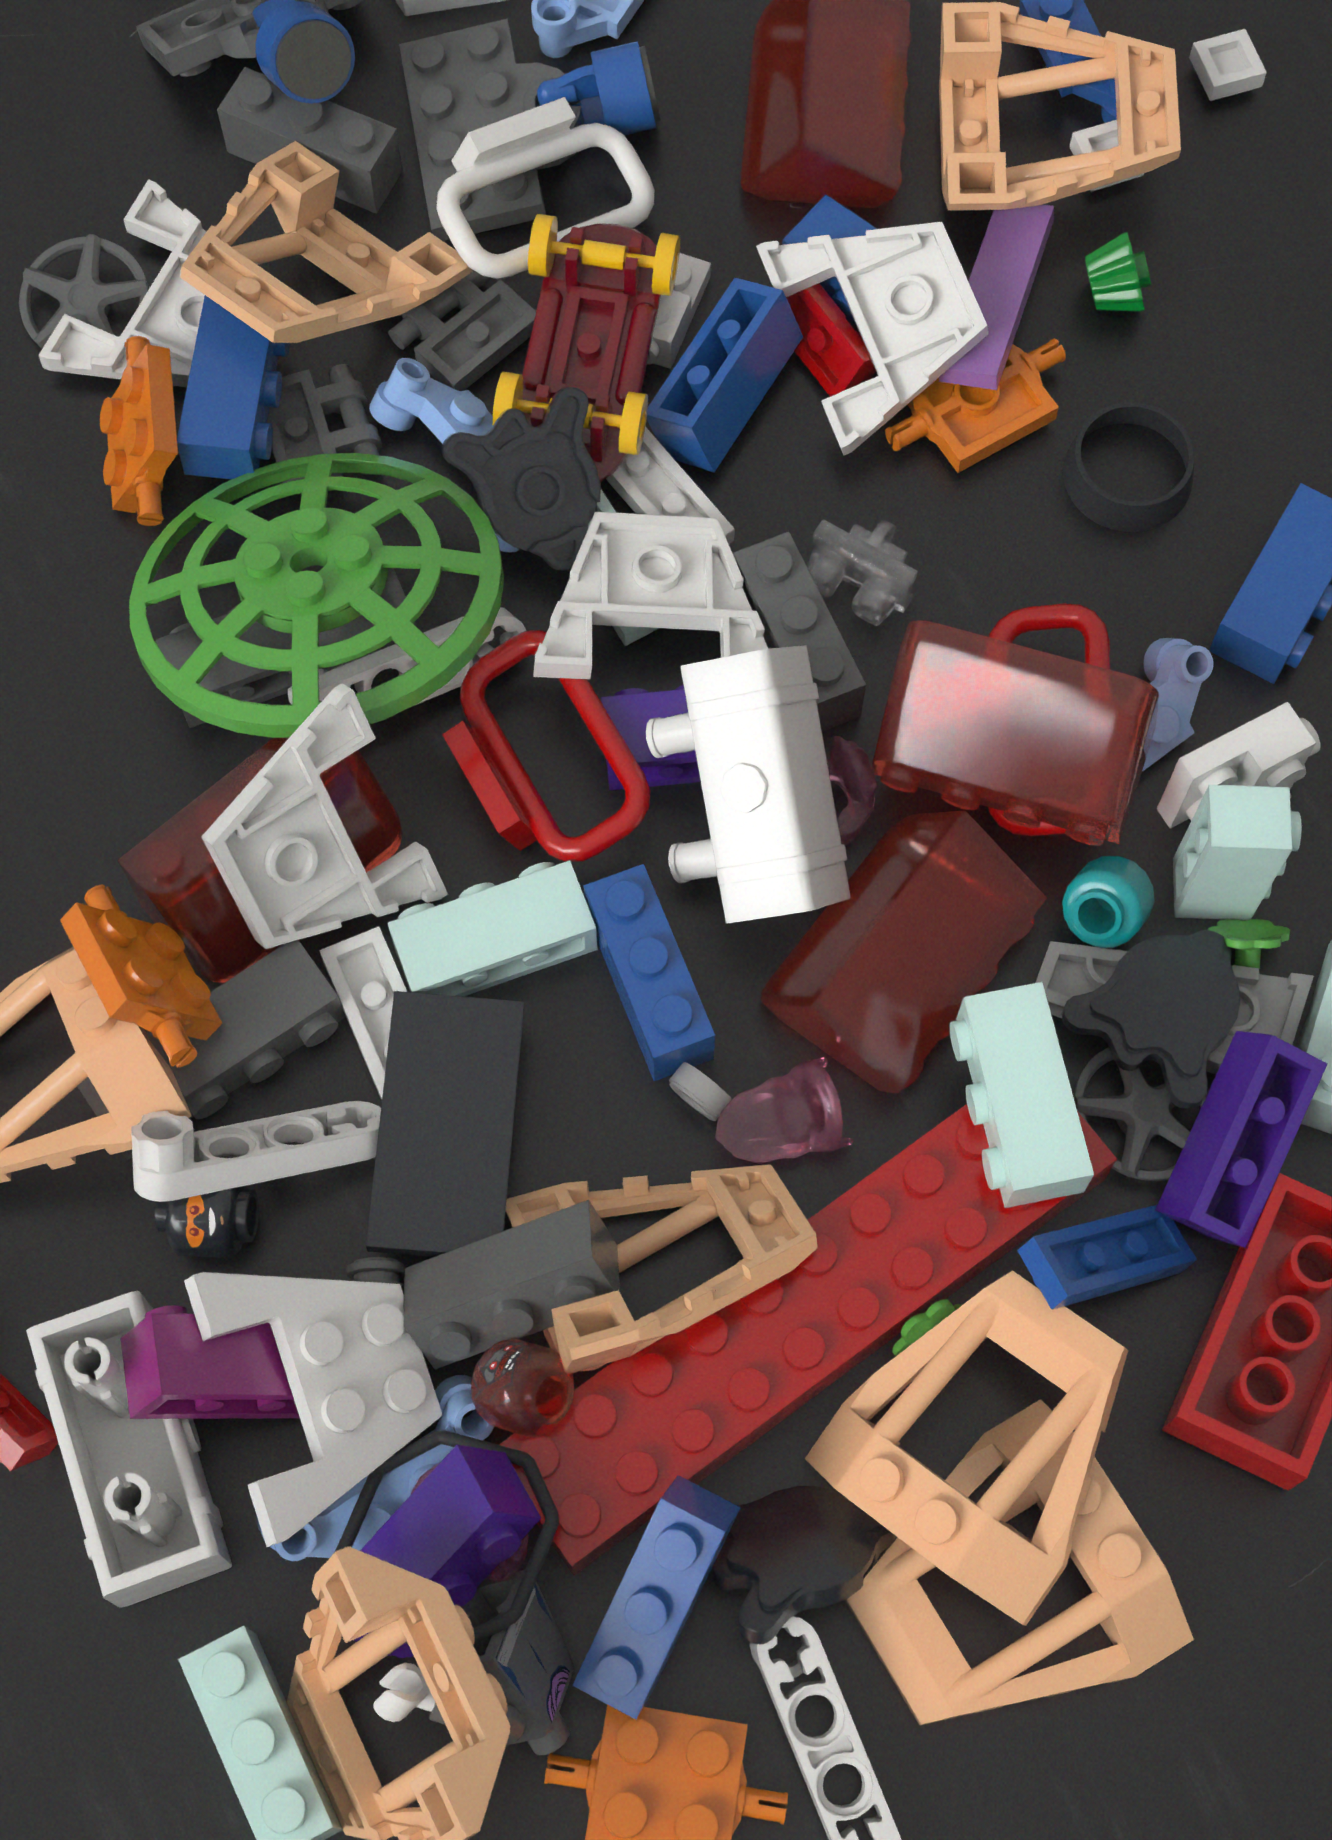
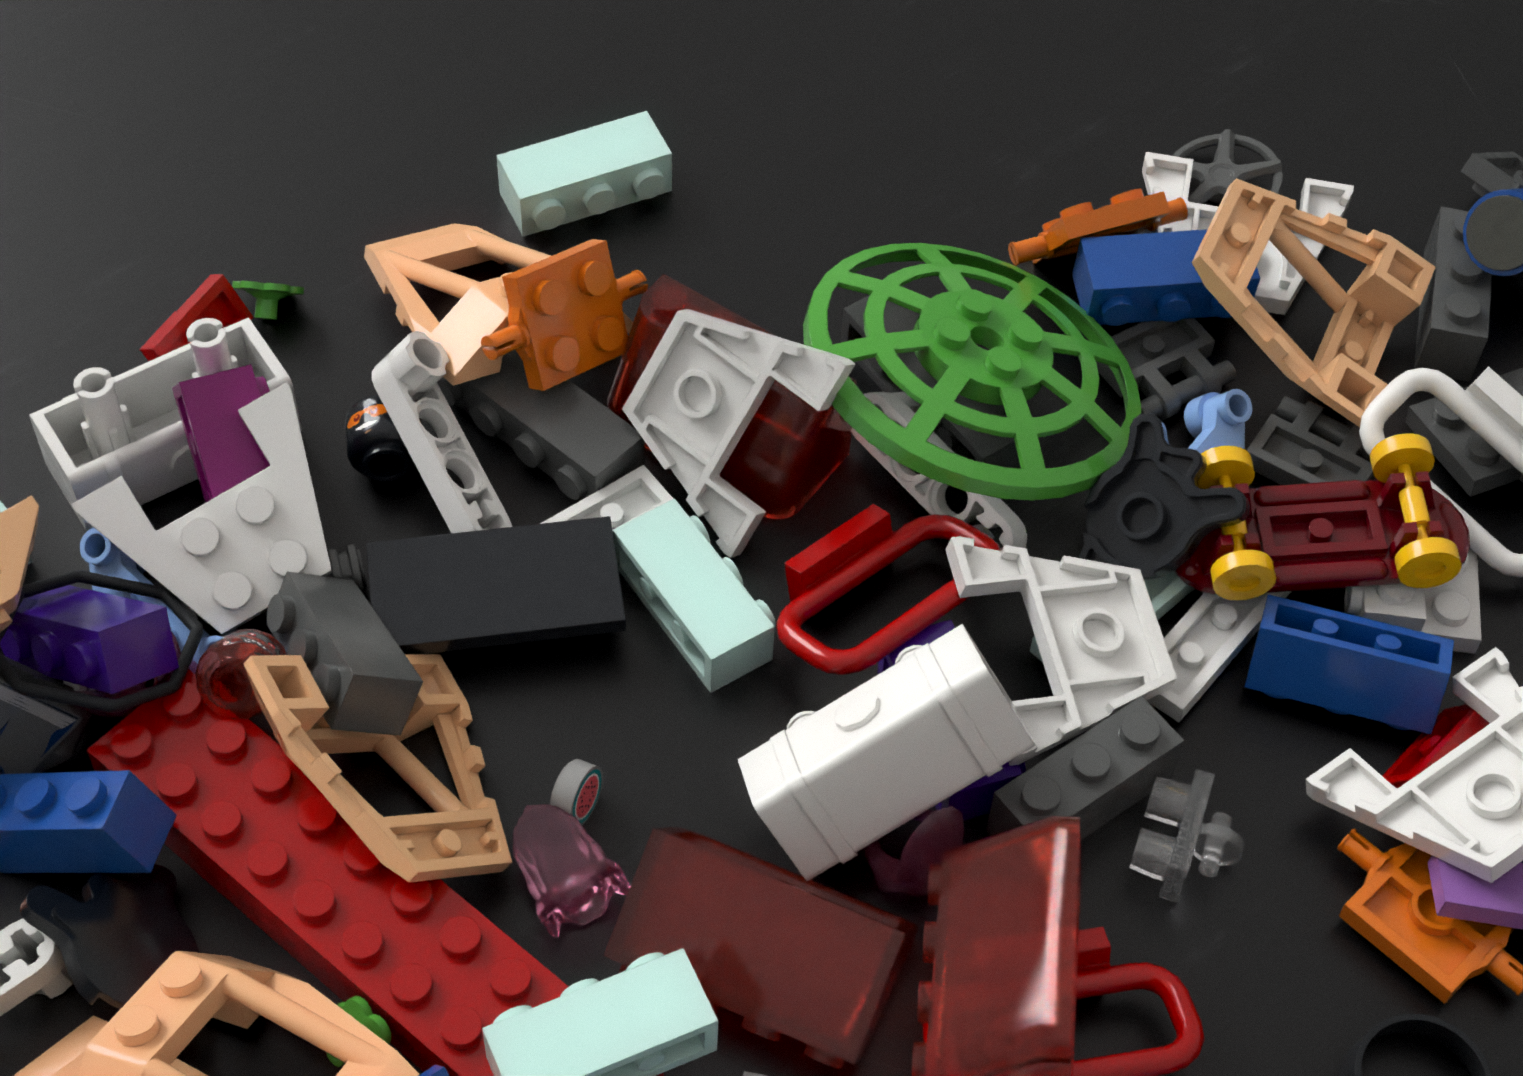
camera: 75 degrees right, 15 degrees down
(649, 972) = (685, 722): blue brick -> none

